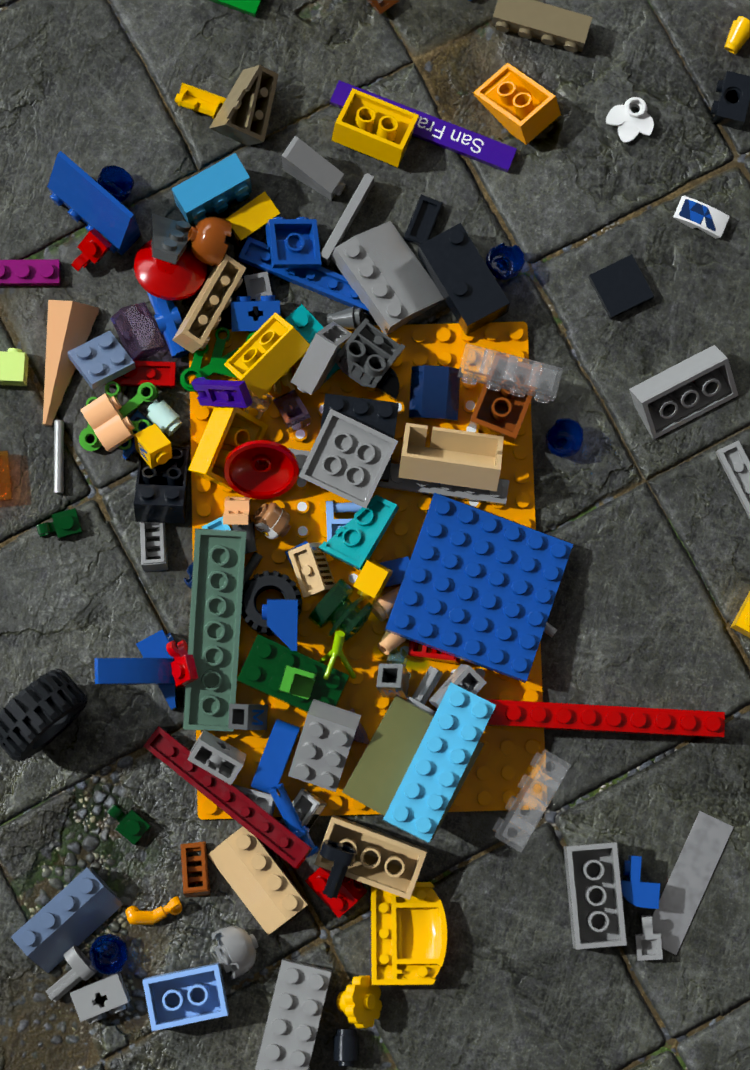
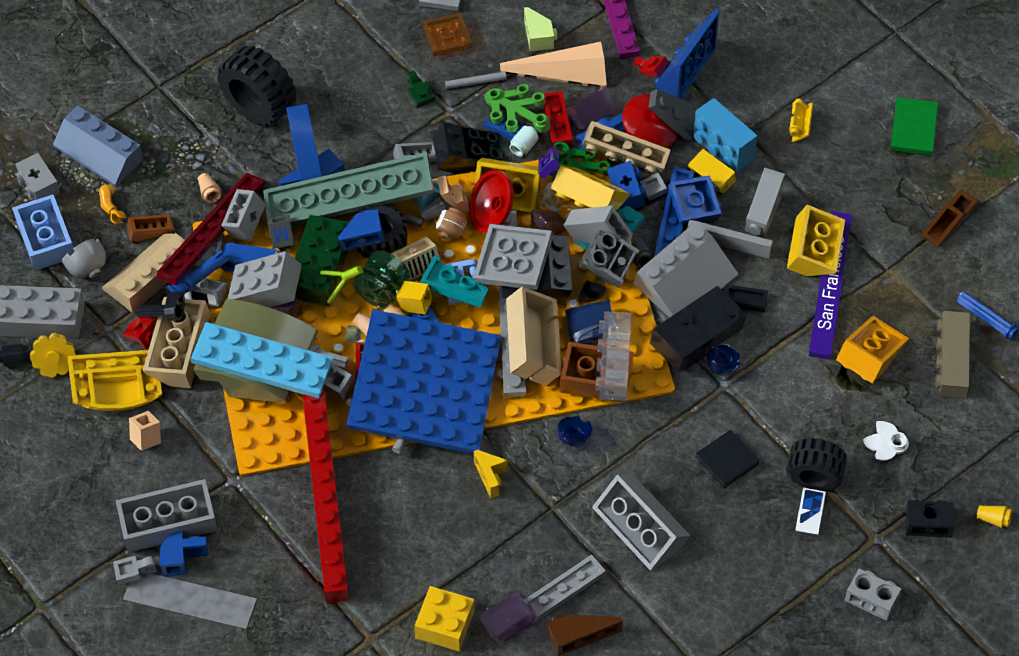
camera: 85 degrees right, 25 degrees down
(80, 970) = (58, 163): light grey piece -> none
(101, 360) = (560, 87): sand blue plate -> none
(108, 422) = (507, 96): light nougat brick -> none
(108, 954) = (72, 176): clear blue hair -> none
(116, 182) = (712, 72): clear blue hair -> none
(131, 824) = (181, 178): dark green plate -> none
(153, 446) = (496, 132): yellow brick -> none
(155, 793) = (209, 188): none -> light nougat cone
(184, 666) = (310, 172): red plate -> none
(209, 240) = (681, 138): dark orange cylinder -> none
(247, 106) = (803, 148): dark tan wedge -> none
(297, 682) = (313, 248): bright green panel -> none
(393, 680) = (330, 328): dark grey brick -> none
(482, 906) = (144, 430): none -> light nougat brick
(532, 800) = (243, 452): clear brick -> none
(592, 540) = (489, 470): none -> yellow slope
(661, 195) = (816, 464): none -> black tyre

